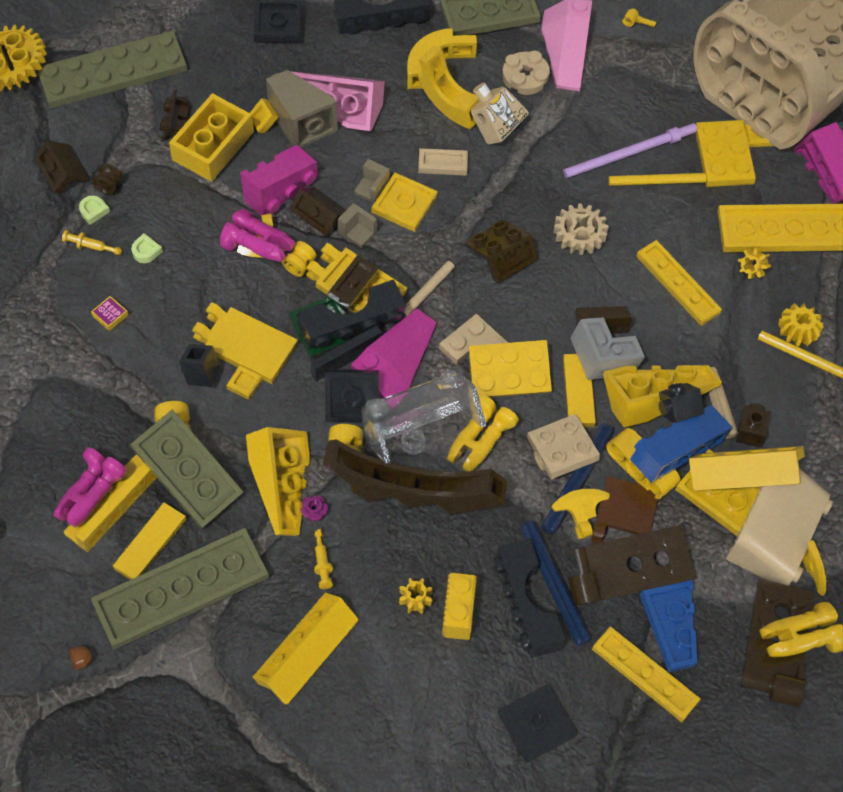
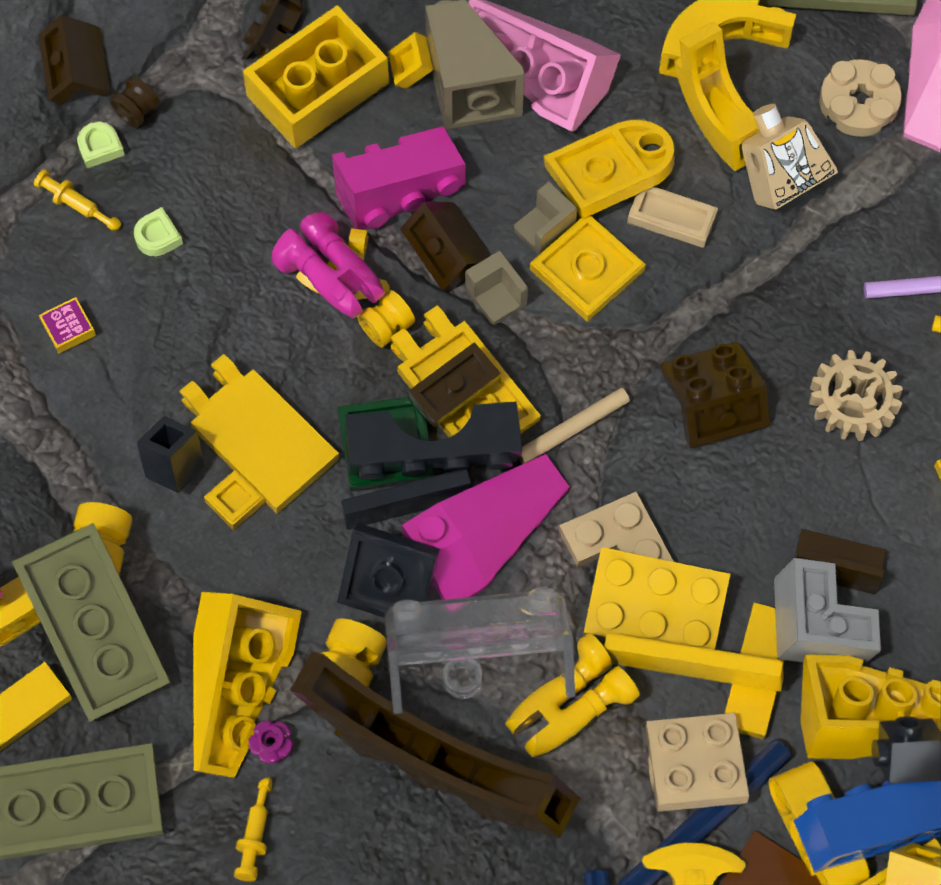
camera: 20 degrees right, 5 degrees up
(399, 142) = (611, 165): none -> yellow tile
(544, 393) = (695, 662): none -> yellow tile

